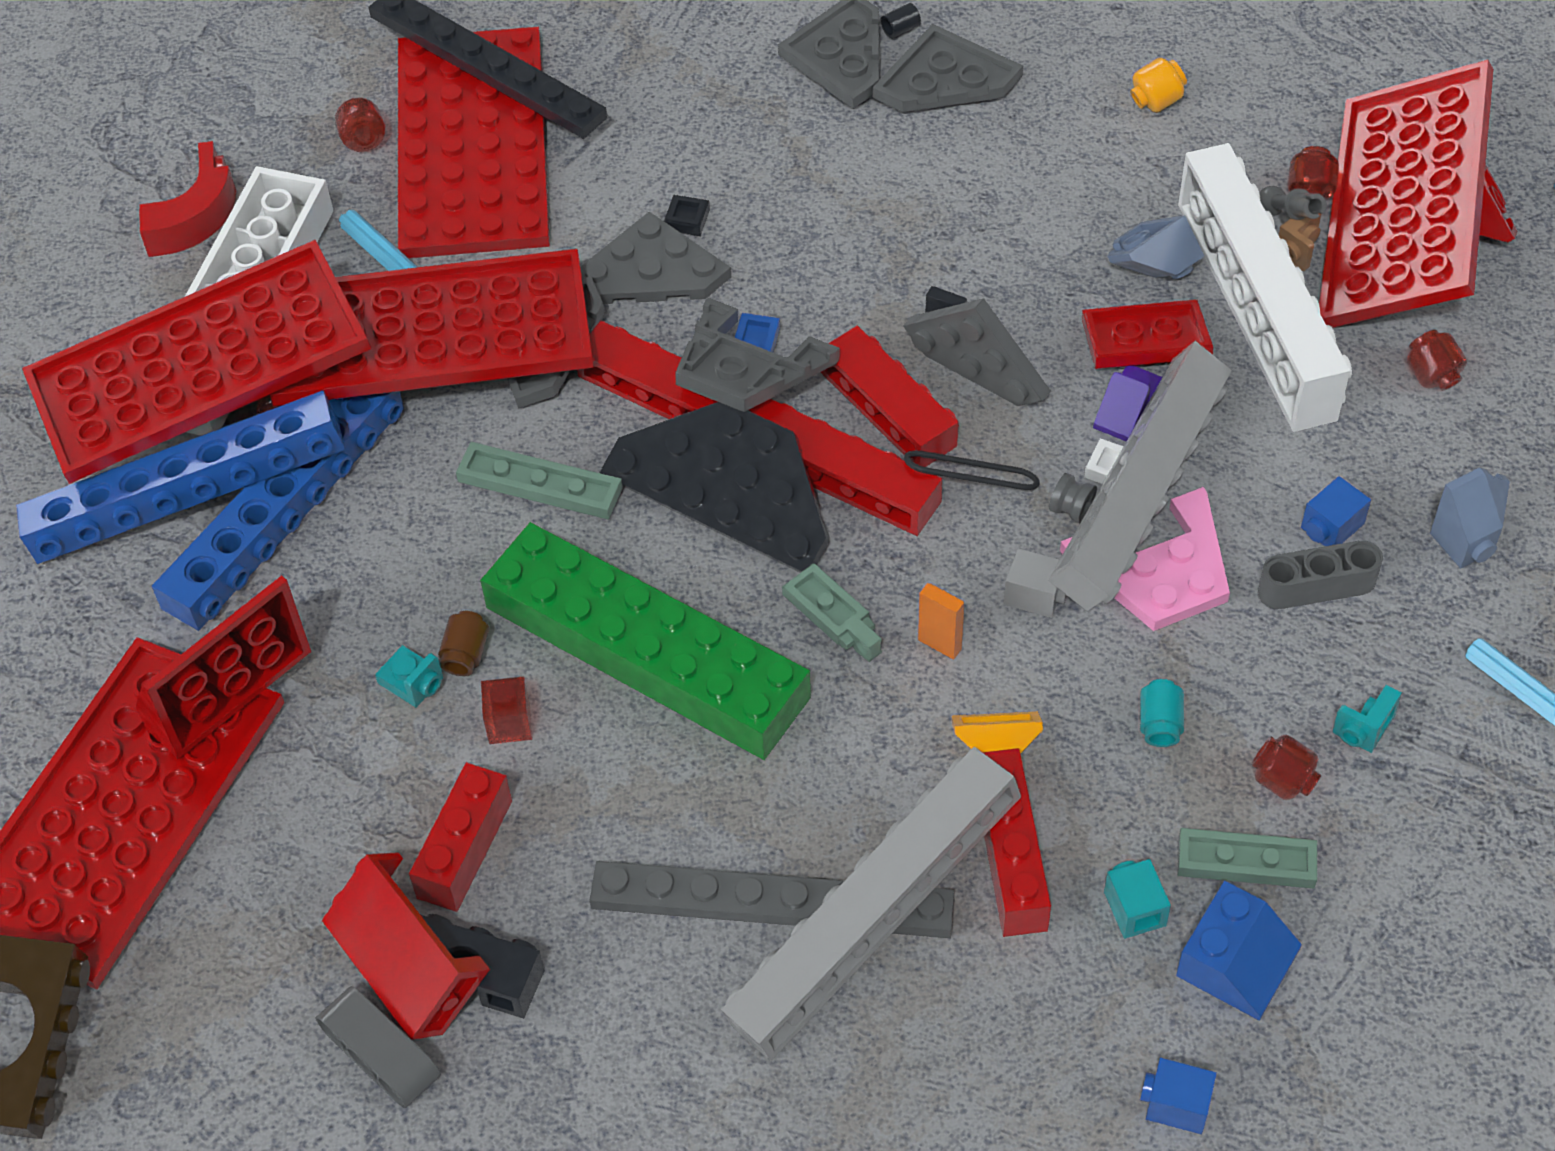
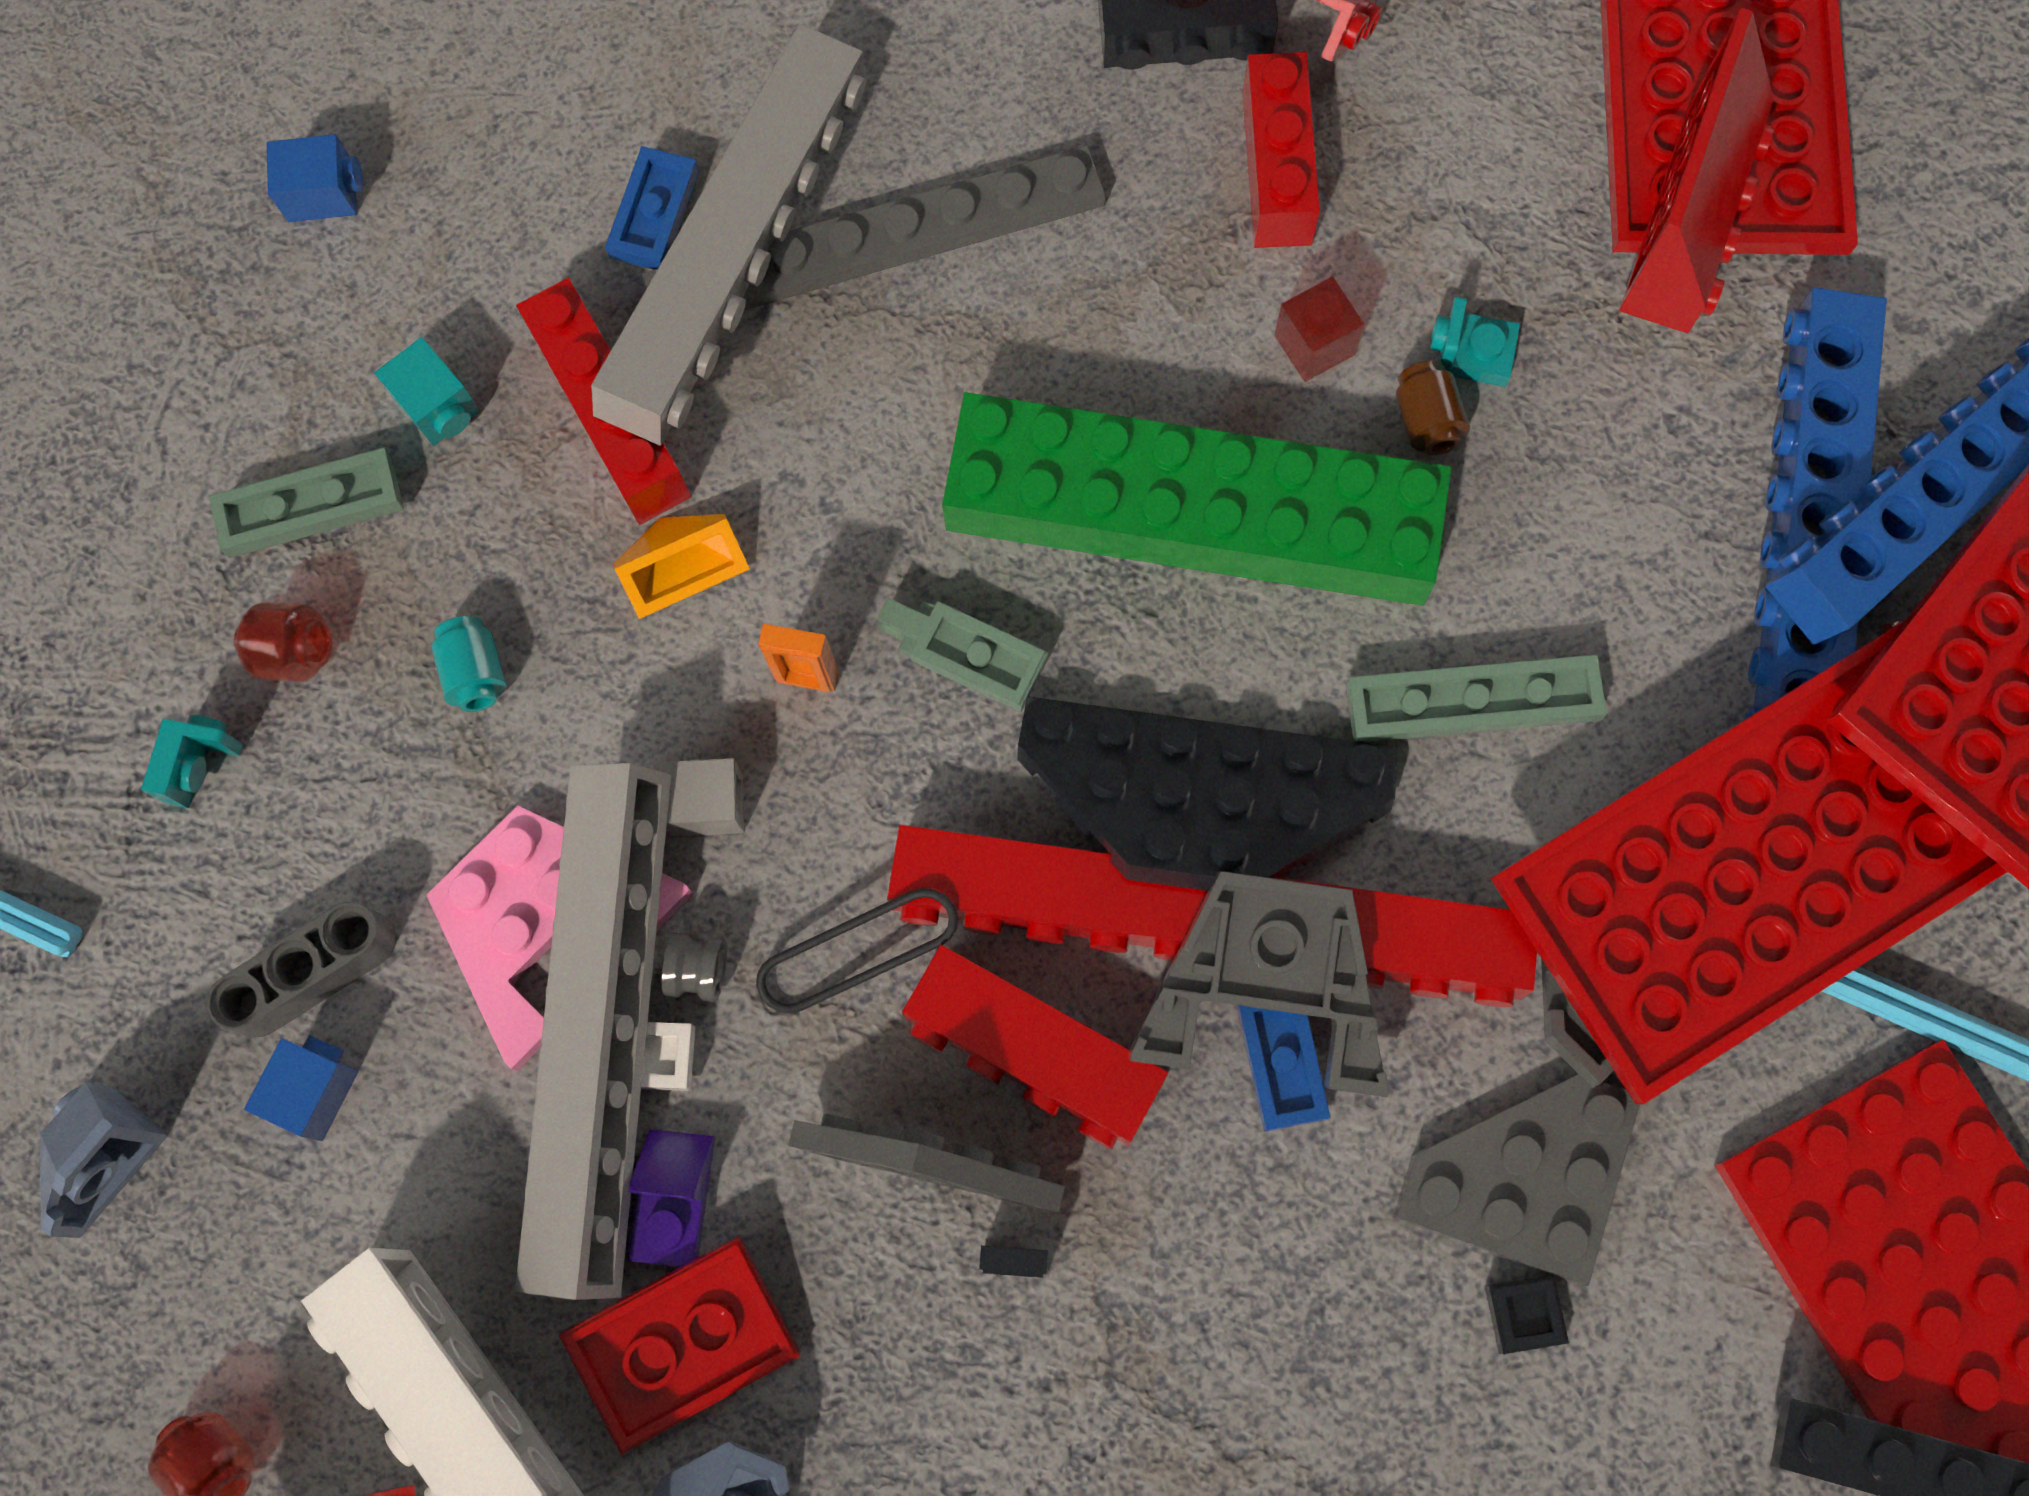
camera: 160 degrees right, 20 degrees up
(925, 975) = (652, 208): none -> blue plate
(1239, 951) = (293, 374): blue slope -> none

